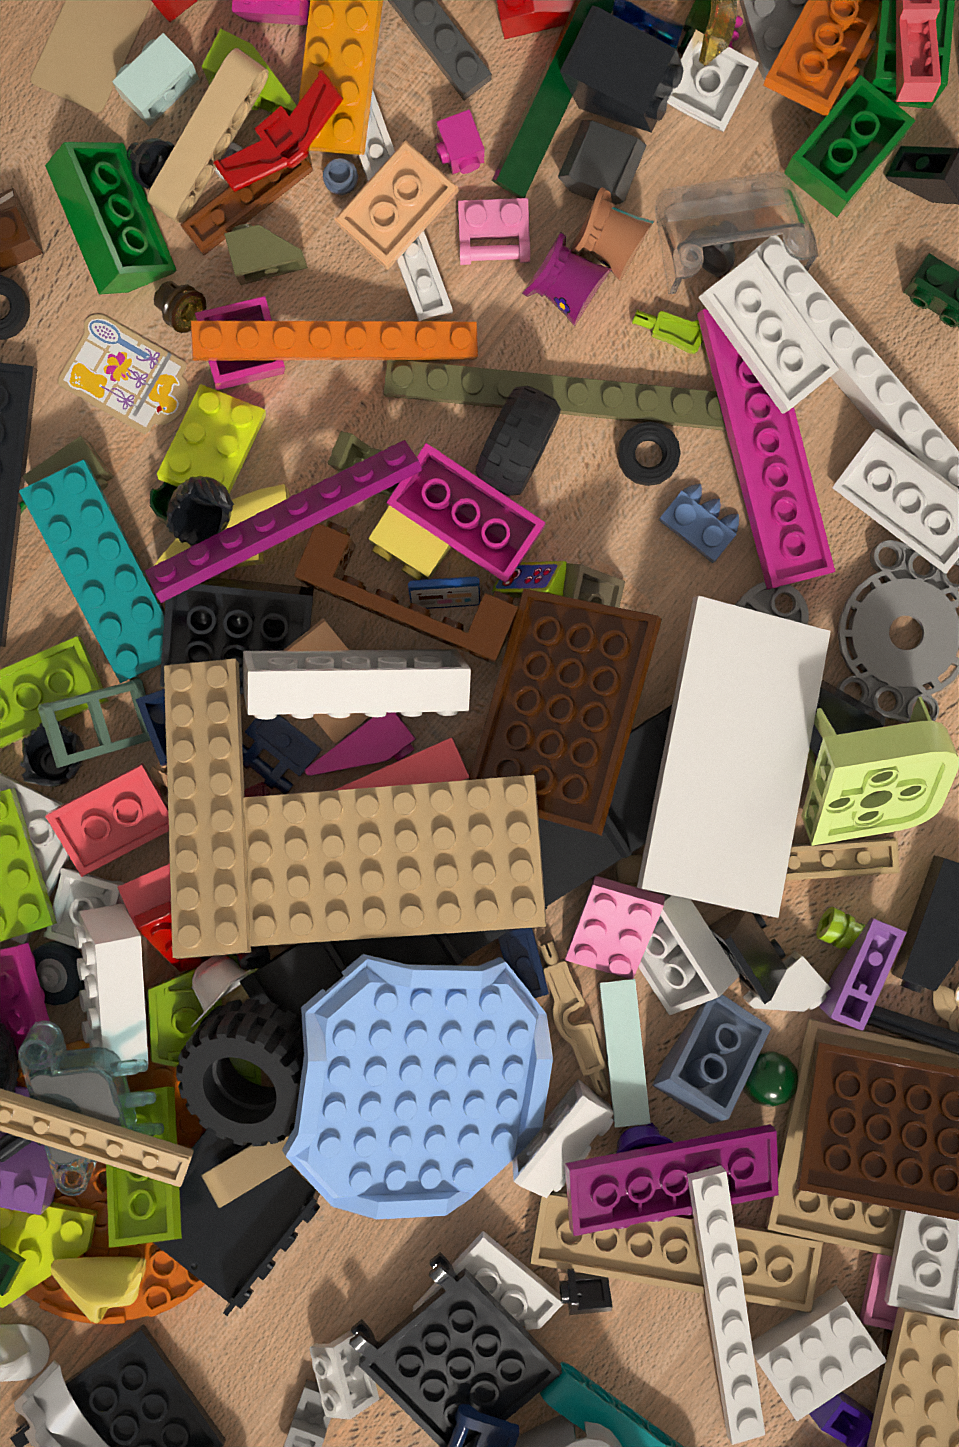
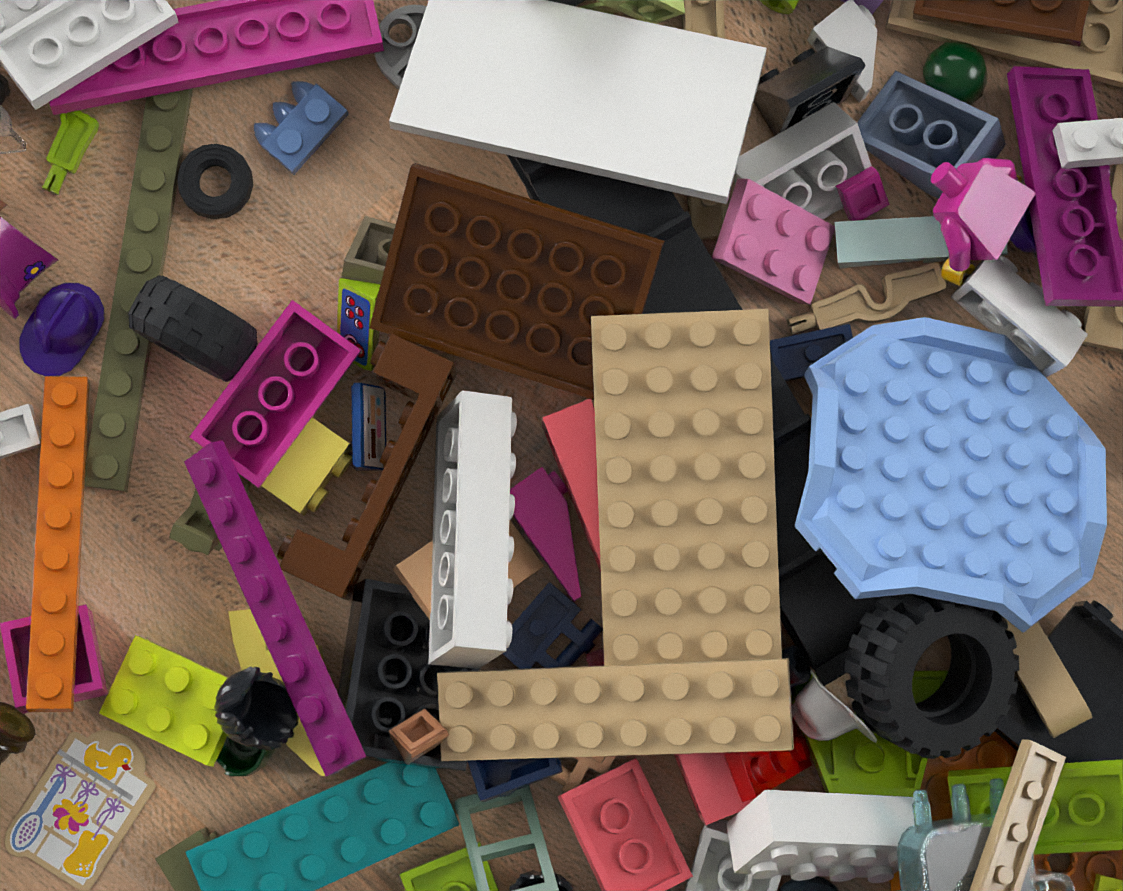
camera: 100 degrees left, 5 degrees down
(184, 645) = (418, 735): none -> nougat slope
(518, 333) = (61, 329): none -> dark purple piece
(646, 1103) = (977, 211): none -> torso
(660, 1002) = (862, 194): none -> dark pink tile

